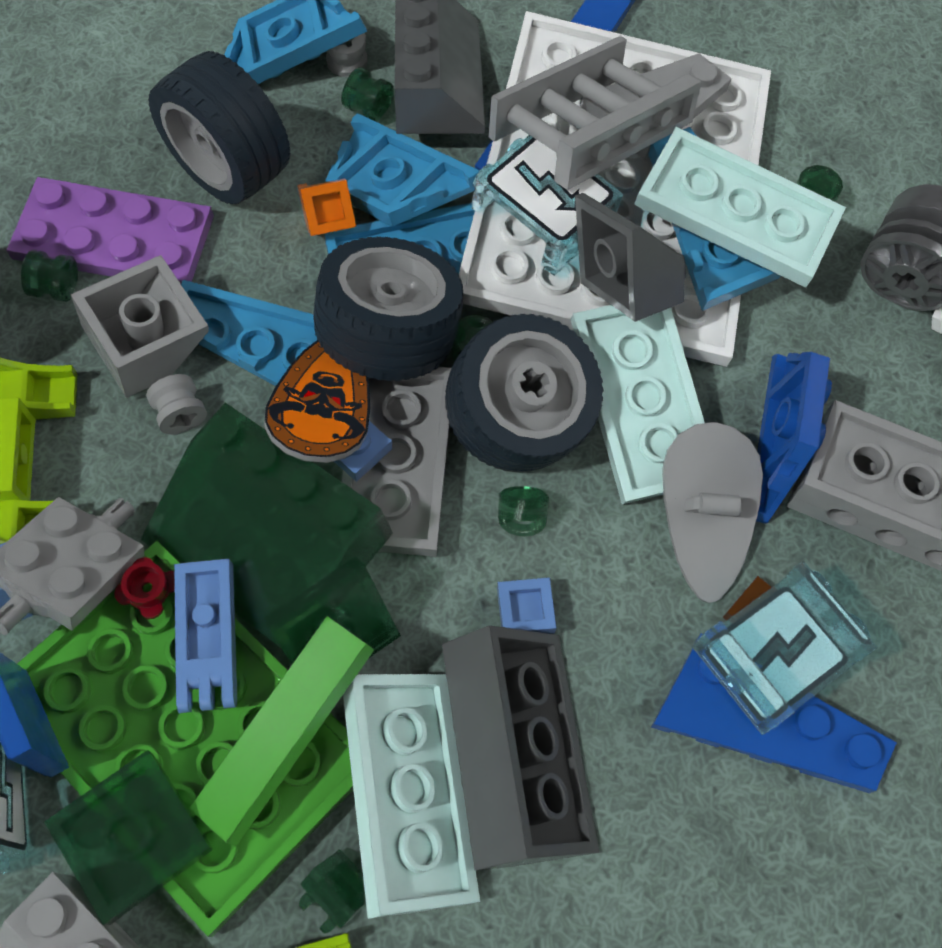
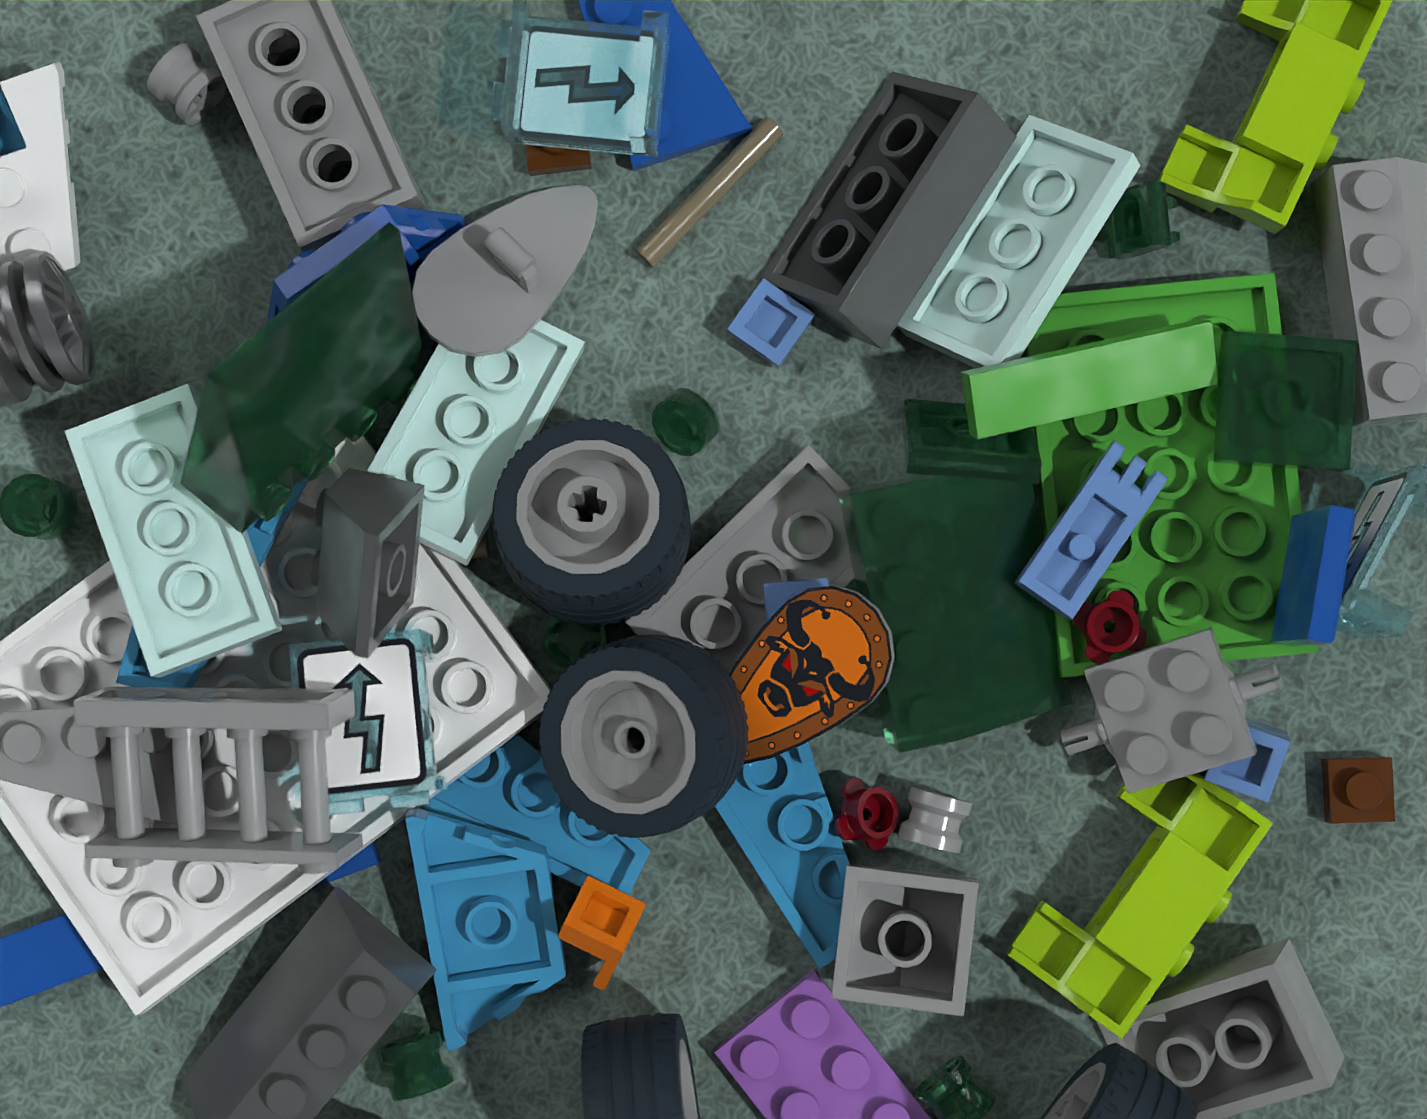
camera: 130 degrees left, 20 degrees up
(210, 382) = (880, 811): none -> dark red plate
(640, 664) = (709, 191): none -> dark tan bar
(755, 314) = (305, 385): none -> clear green slope

